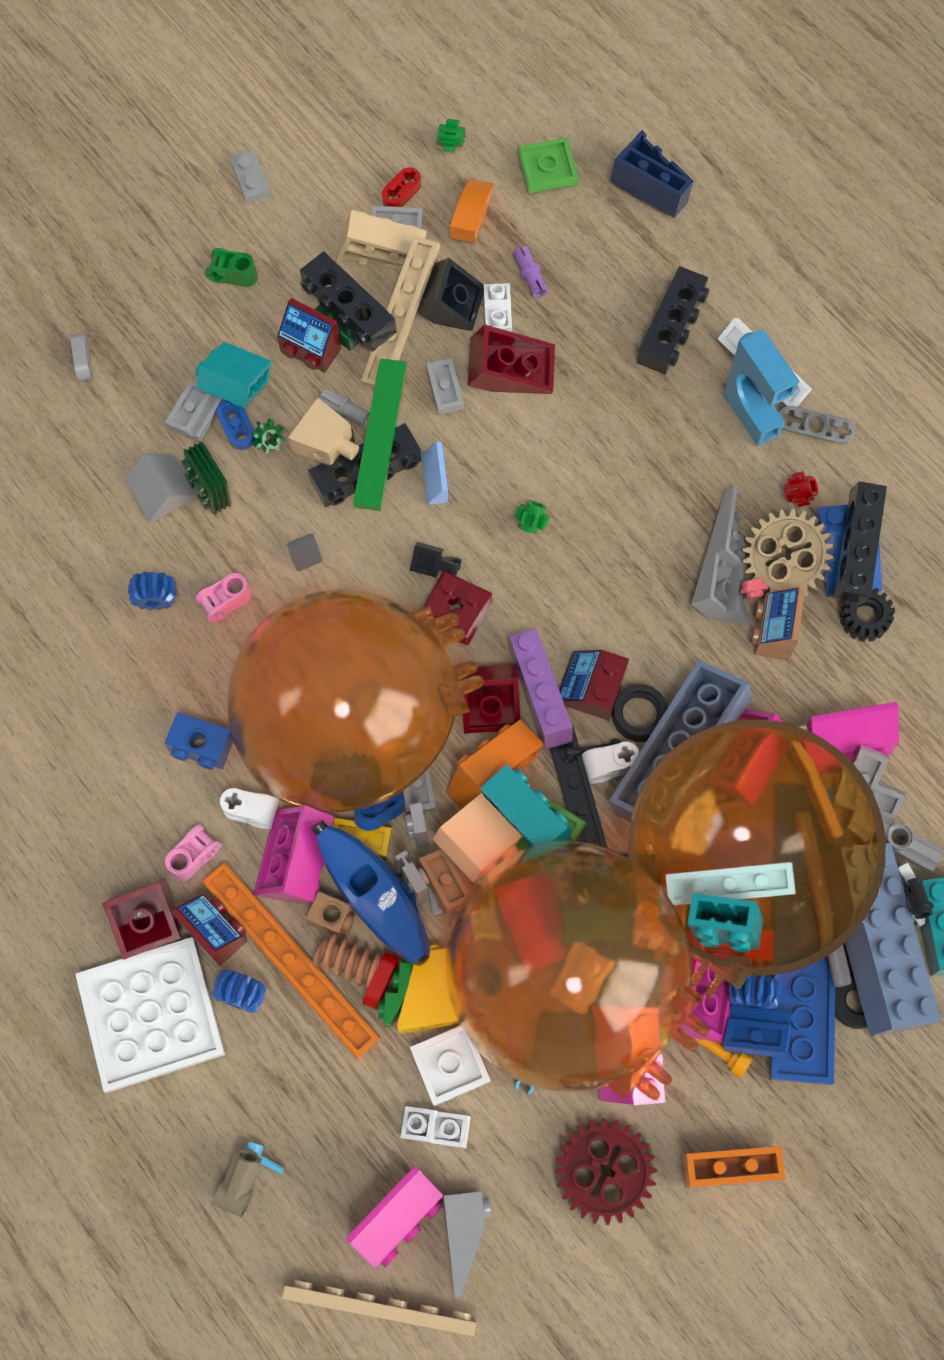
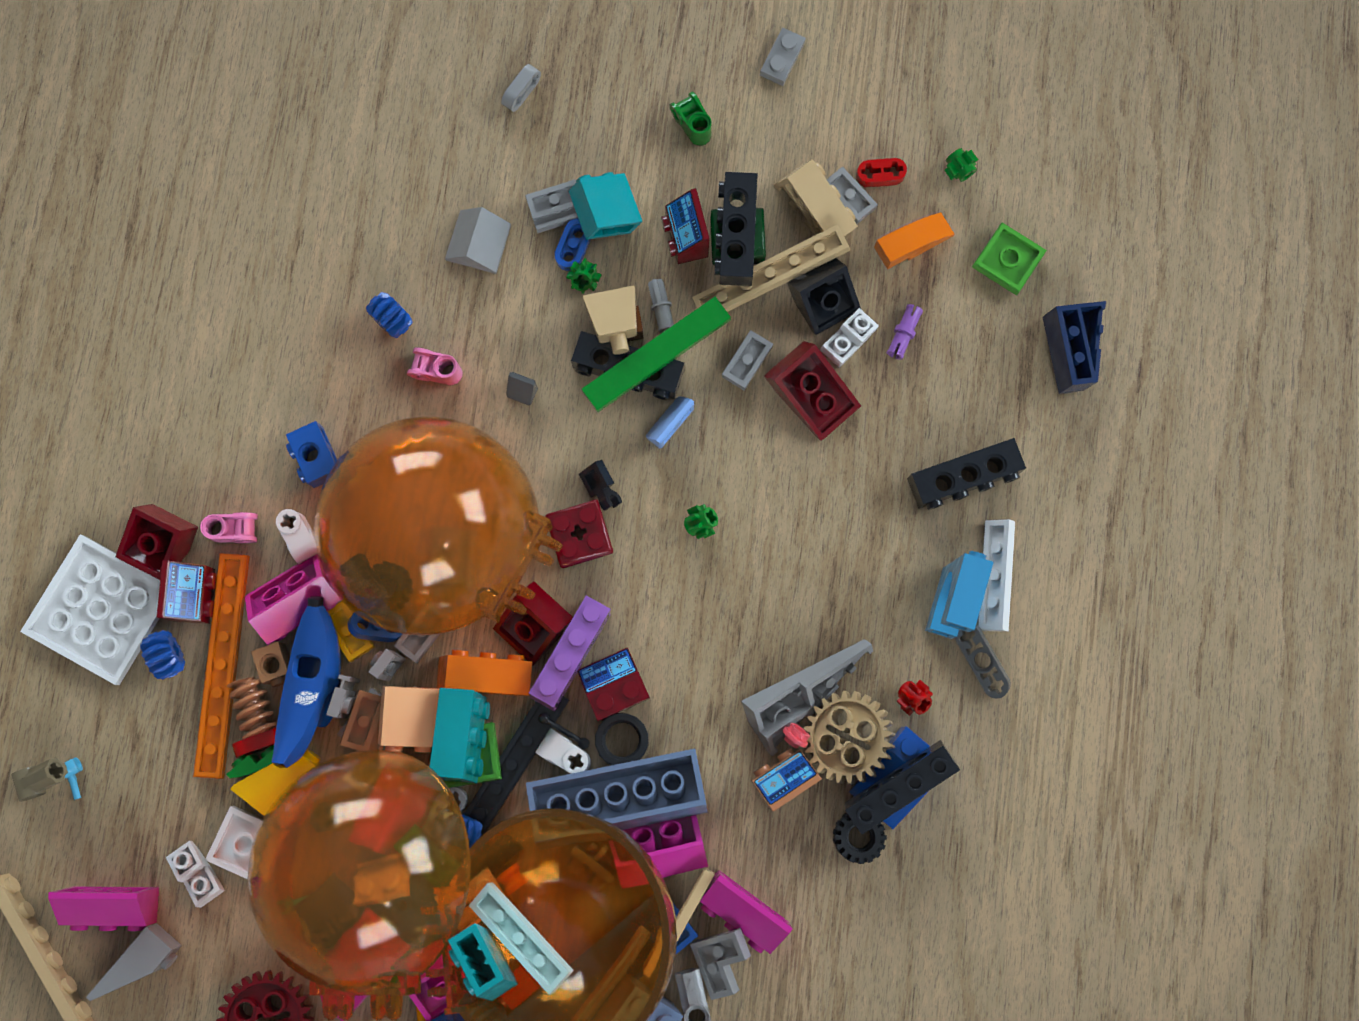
camera: 45 degrees right, 10 degrees up
(206, 477) = (507, 267): dark green brick -> none

